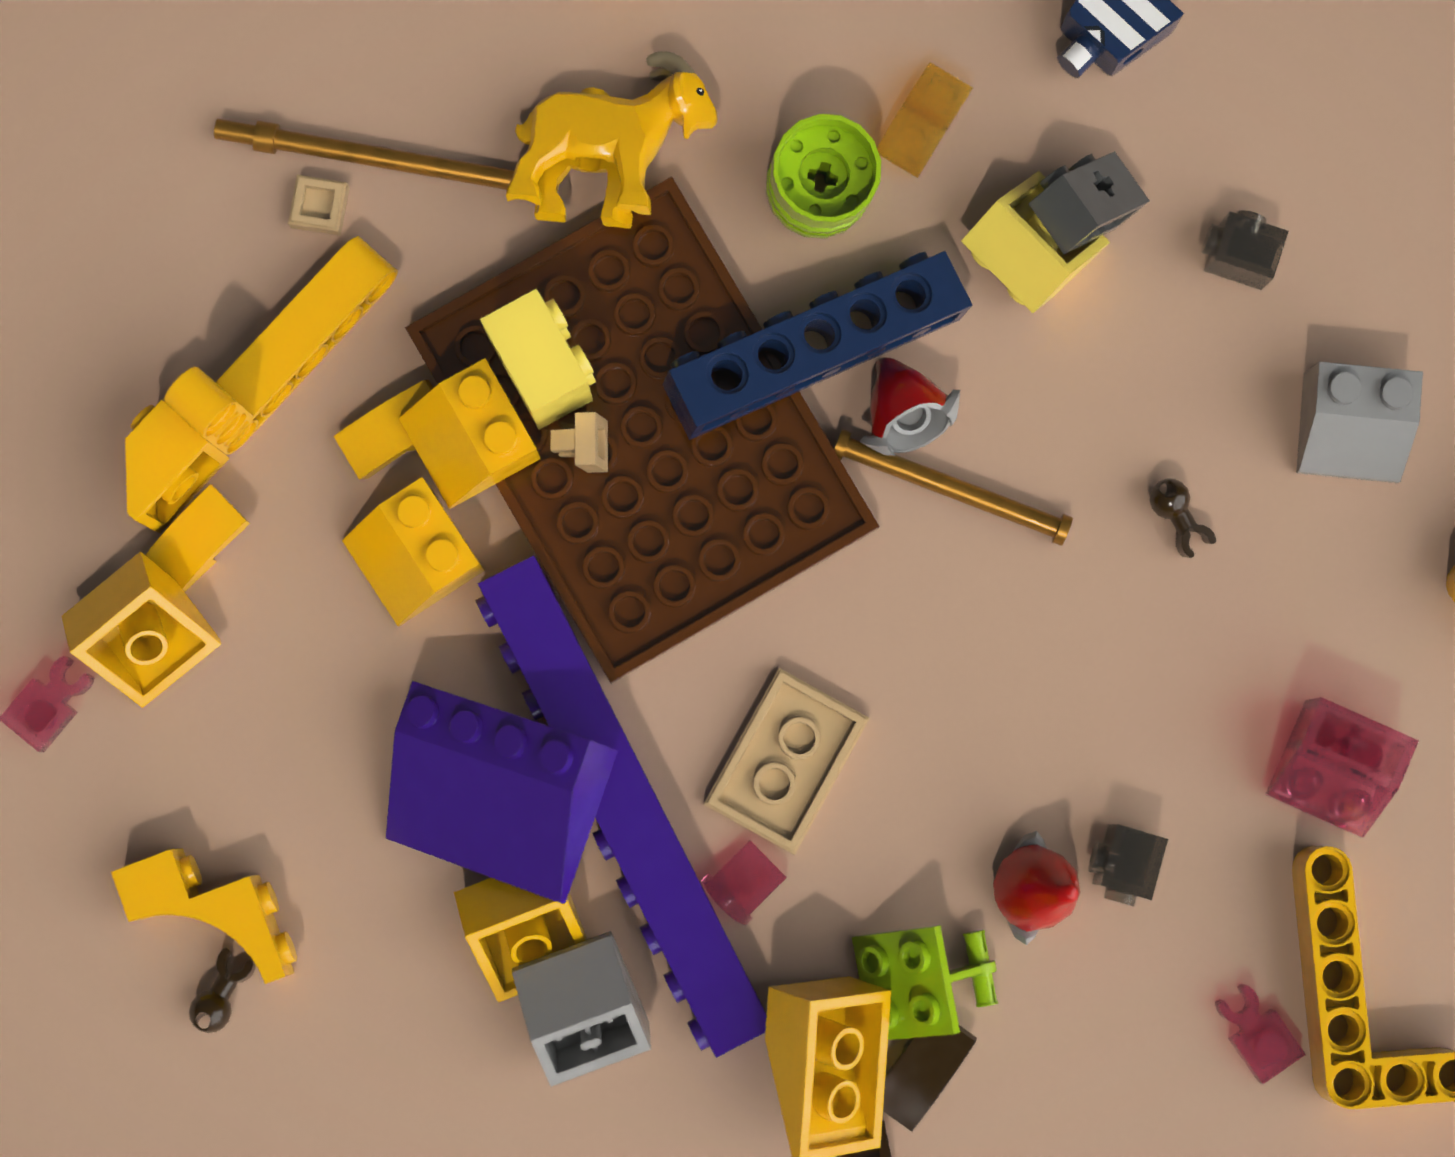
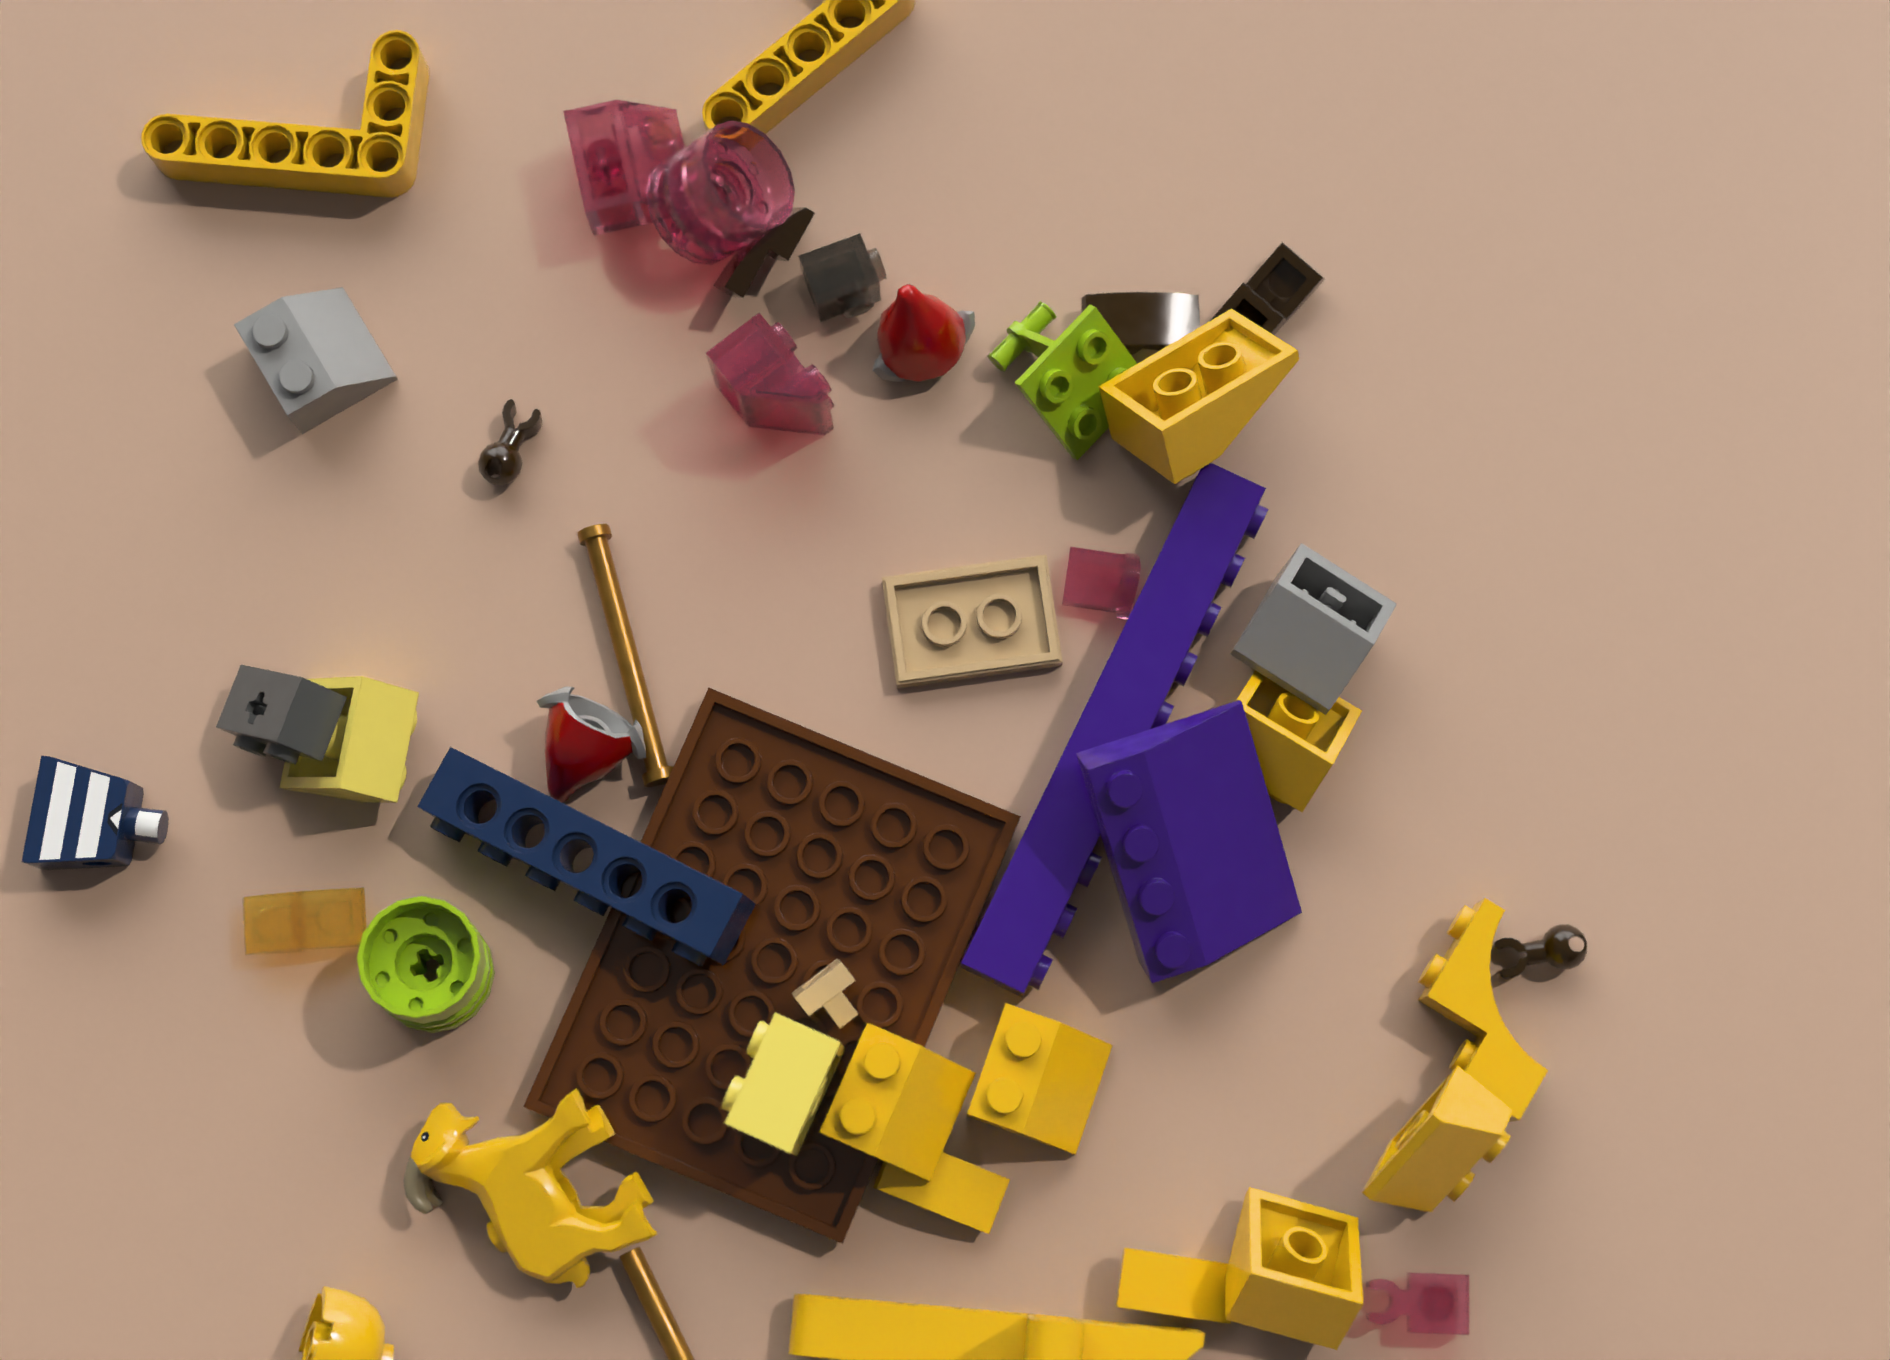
camera: 120 degrees left, 5 degrees down
(138, 799) = (1441, 1145): none -> yellow slope
(1087, 738) = (768, 382): none -> clear pink slope
(1199, 834) = (778, 244): none -> dark brown slope
(1244, 249) = (225, 555): clear smoke brick -> none
(1261, 814) = (720, 193): none -> clear pink wheel
(1262, 1039) = (904, 76): clear pink plate -> none

